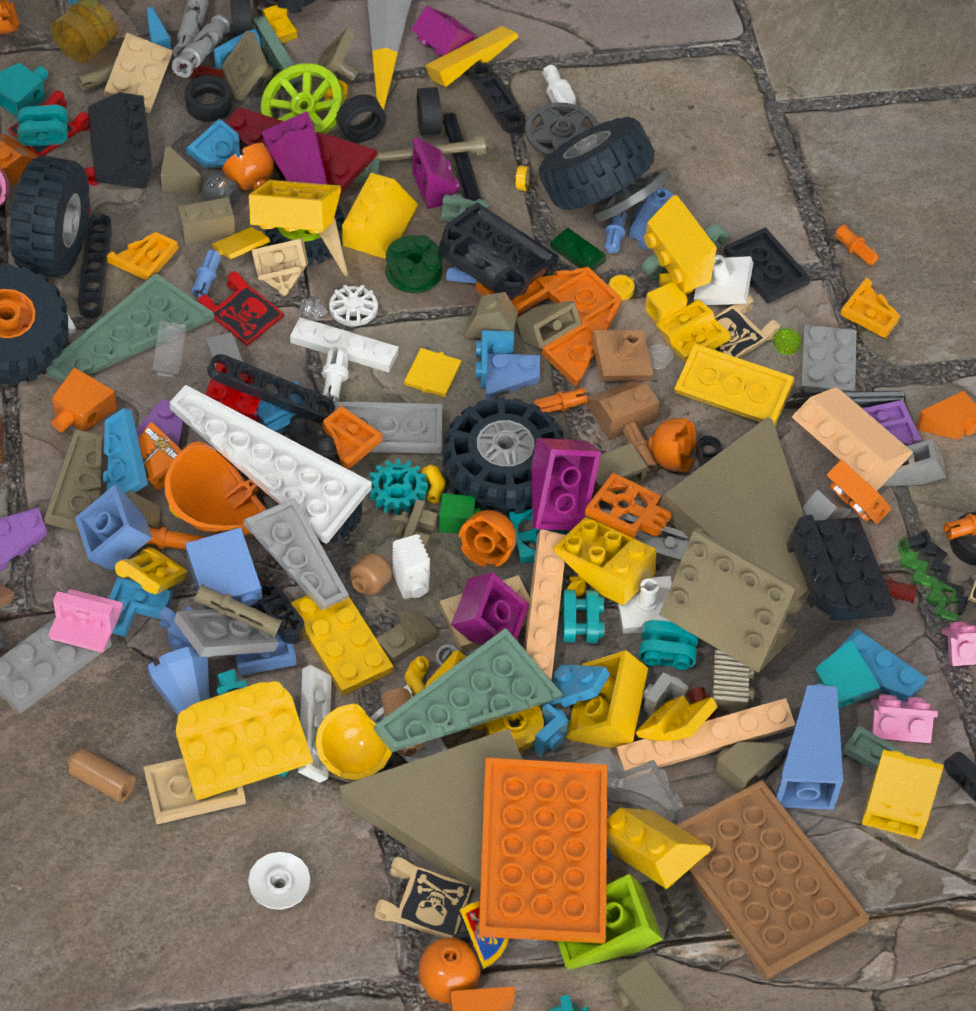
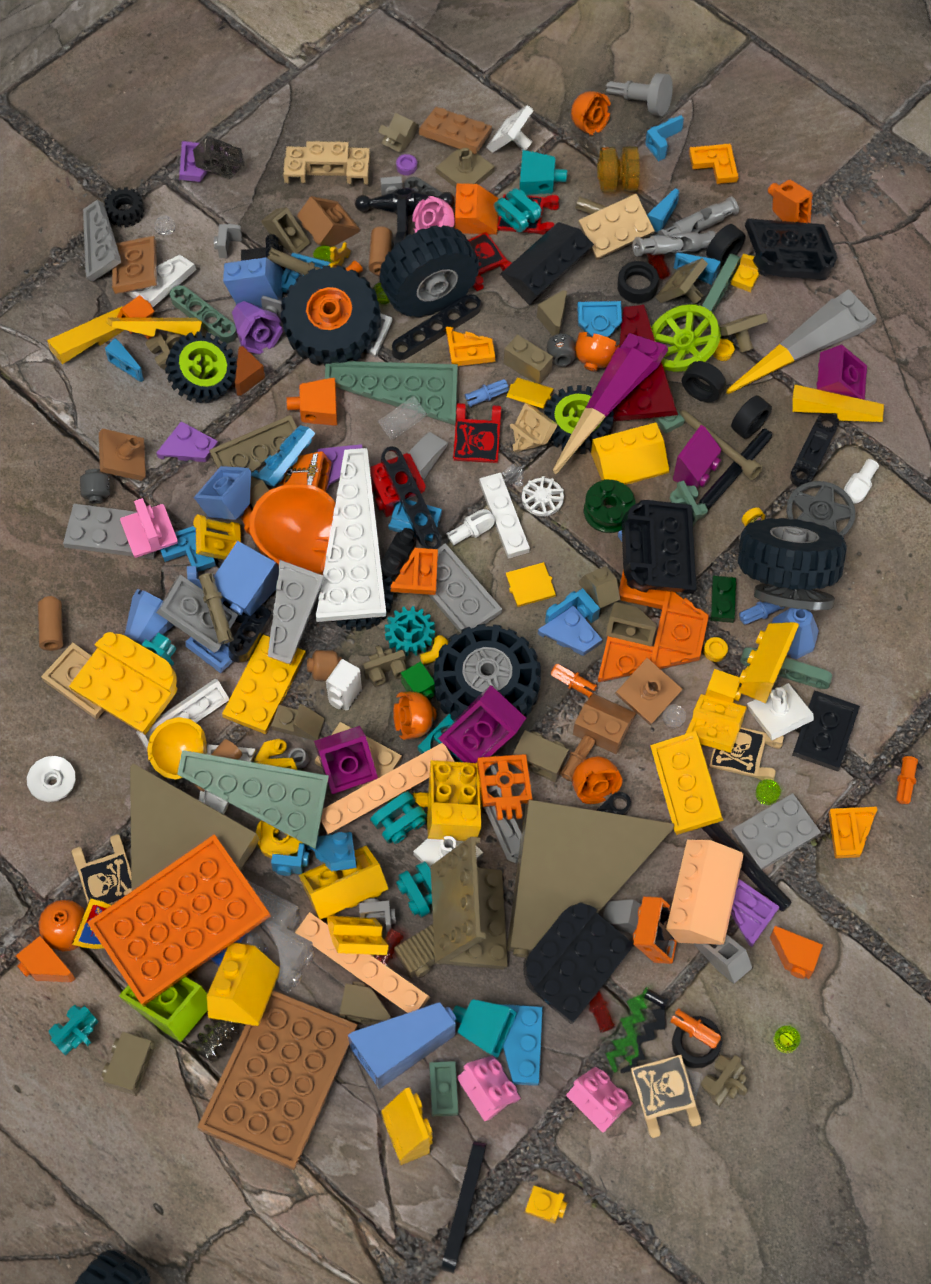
camera: 55 degrees right, 10 degrees up
(294, 205) = (575, 398): yellow slope -> none

